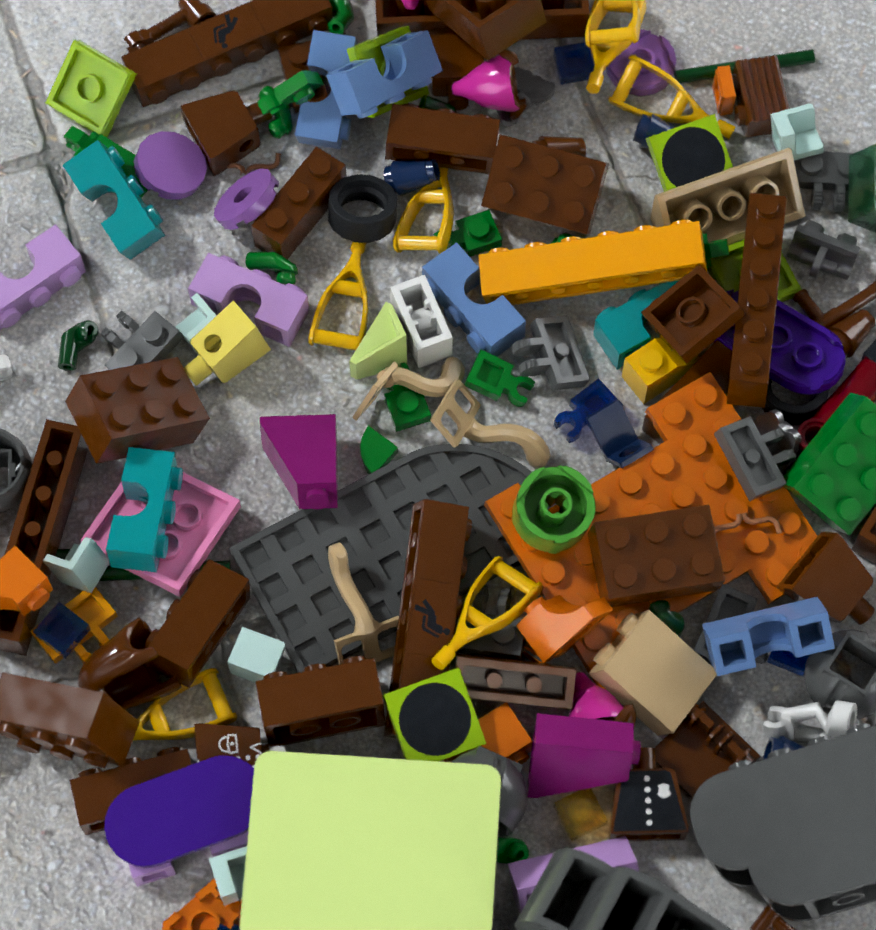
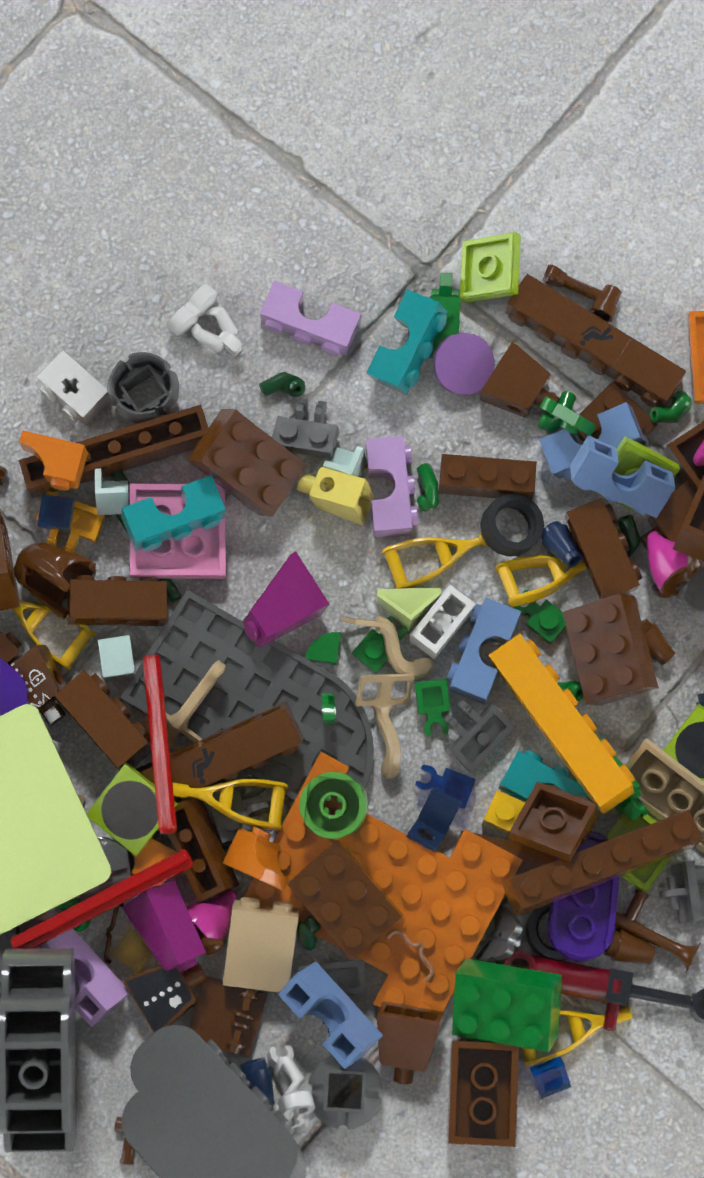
camera: 60 degrees right, 10 degrees up
(246, 199) = (466, 436): medium lavender tile -> none
(257, 166) = (509, 430): nougat piece -> none
(383, 650) = (159, 744): none -> axle
(447, 474) = (328, 708): none -> green tile
(519, 797) = (103, 901): none -> red axle
(546, 832) = (108, 934): none -> reddish brown piece
(751, 458) = (465, 929): dark grey hinge -> none

